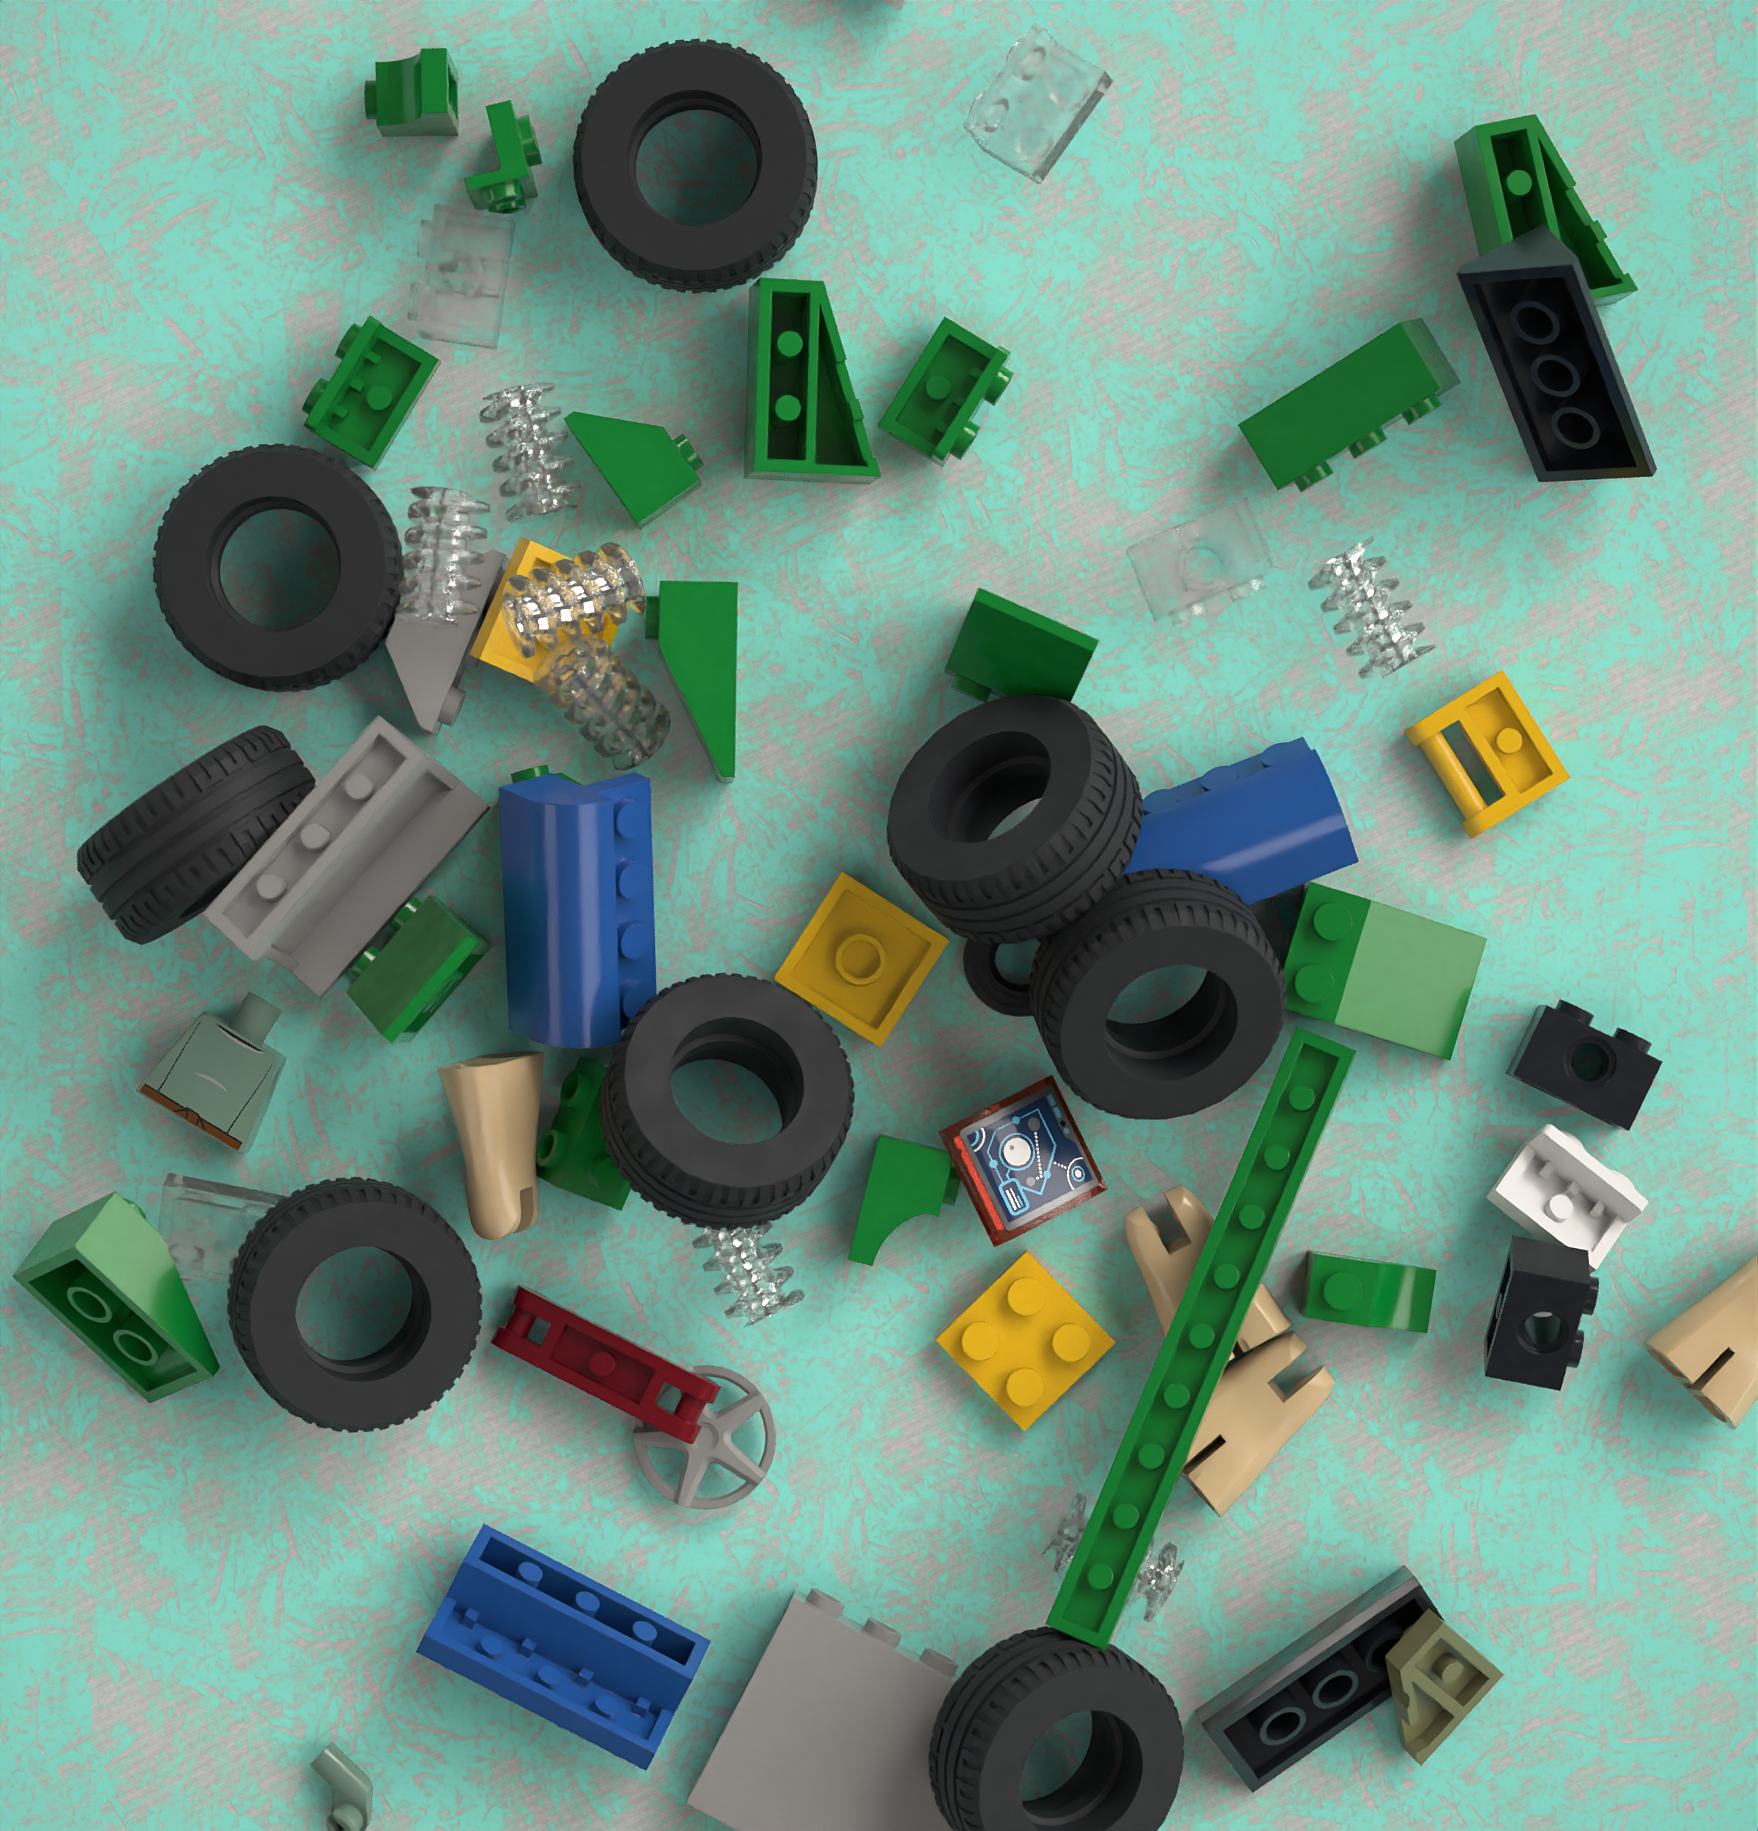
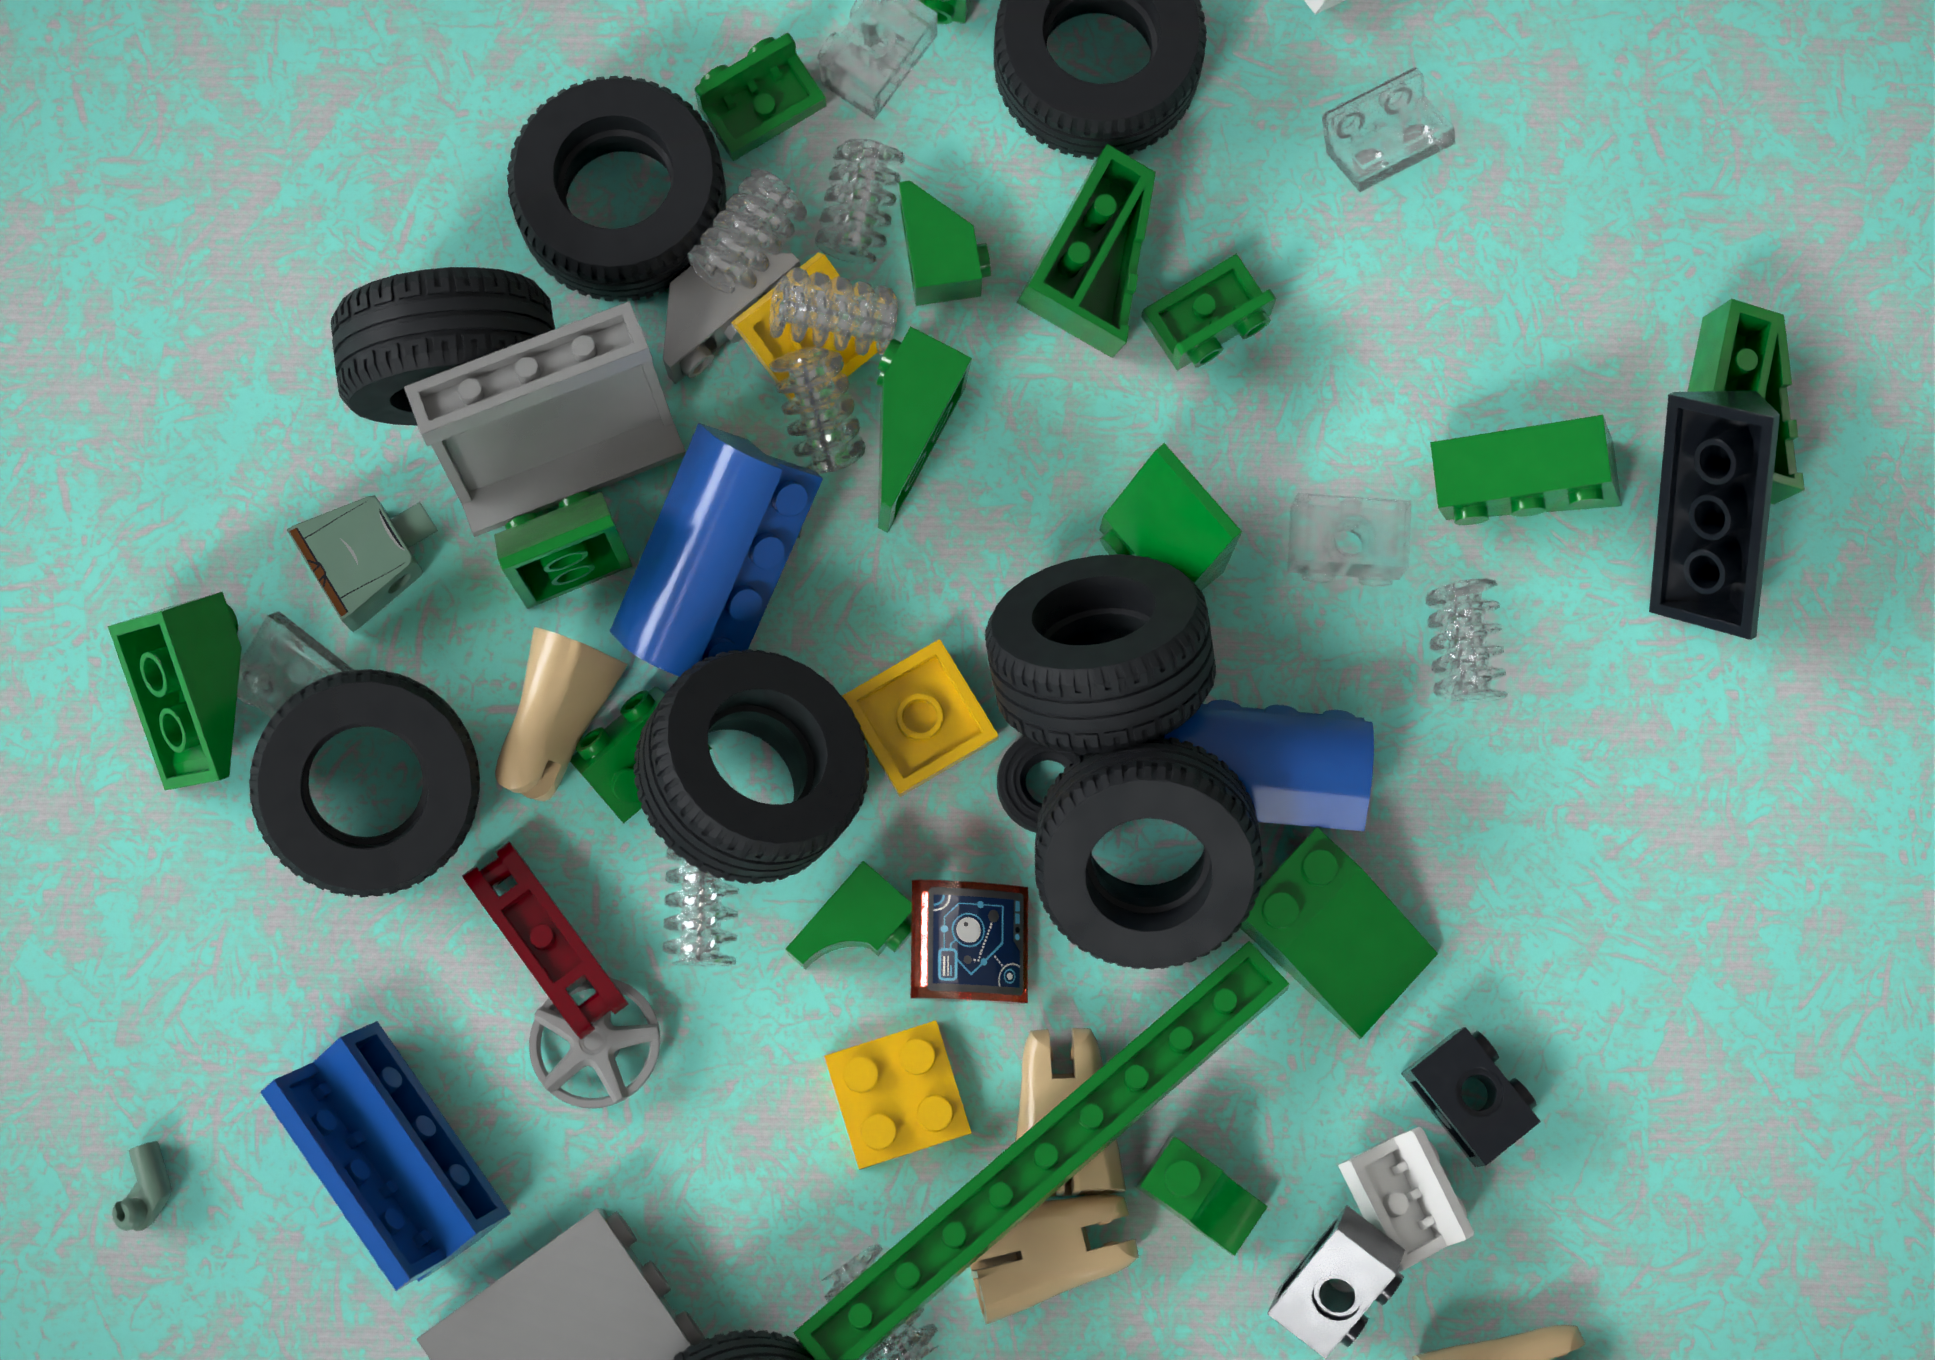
camera: 20 degrees right, 10 degrees down
(1504, 741) = (1527, 801): yellow plate -> none

